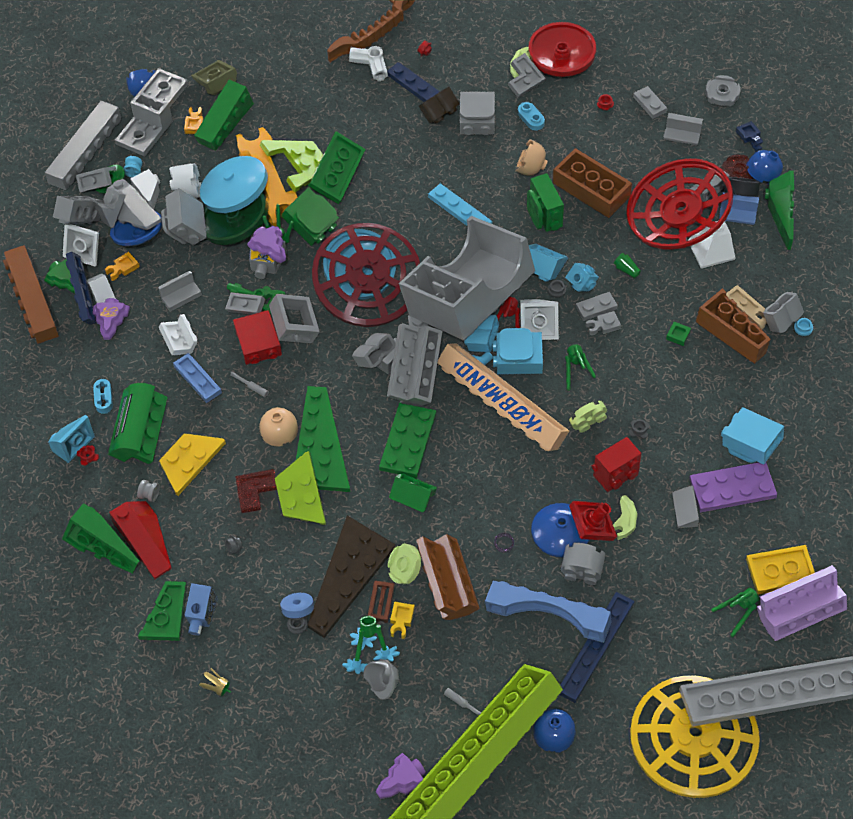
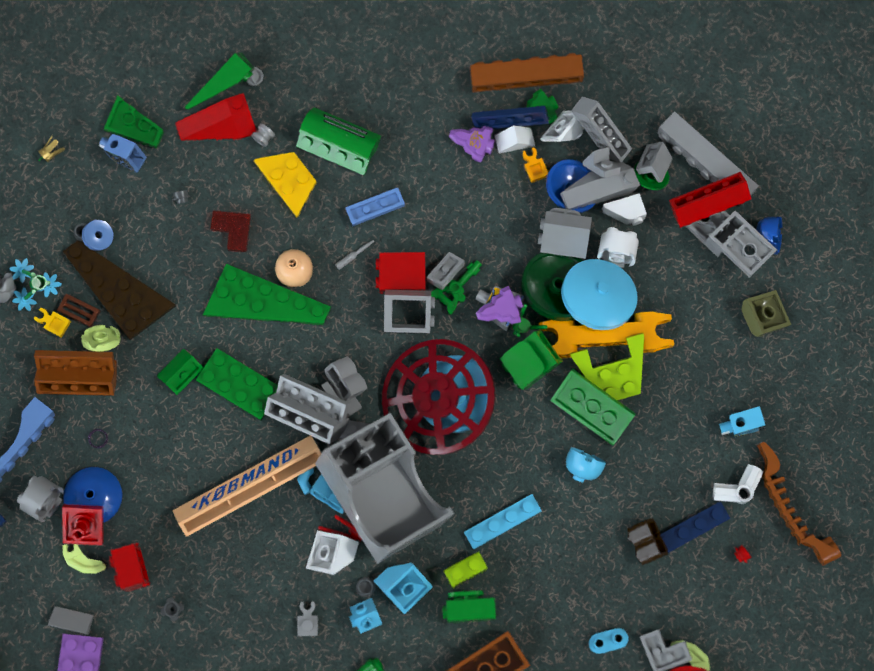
camera: 105 degrees right, 20 degrees up
(71, 438) = (339, 75): medium azure slope -> none
(85, 450) = (323, 86): red plate -> none
(107, 395) = (386, 113): medium azure beam -> none
(124, 123) = (710, 199): none -> red brick
(132, 166) = (661, 202): medium azure wheel -> none
(178, 336) = (428, 199): white bracket -> none
(179, 291) = (483, 214): light grey panel -> none
(193, 121) = (705, 278): light orange plate -> none
(224, 115) = (701, 308): green wedge -> none
(300, 492) = (211, 267): lime wing -> none
(314, 64) = (753, 422): none -> medium azure torso
(390, 160) = (584, 465): none -> medium azure cylinder
(477, 113) = (625, 580): light grey brick -> none
(512, 218) = (465, 569): none -> lime brick
(518, 351) = (297, 519): medium azure brick -> none
(532, 159) = (539, 617): light nougat cylinder -> none
(576, 356) = (276, 577): green plant -> none
(588, 415) = (195, 563): yellowish green plate -> none
(596, 306) = (331, 620): light grey plate -> none

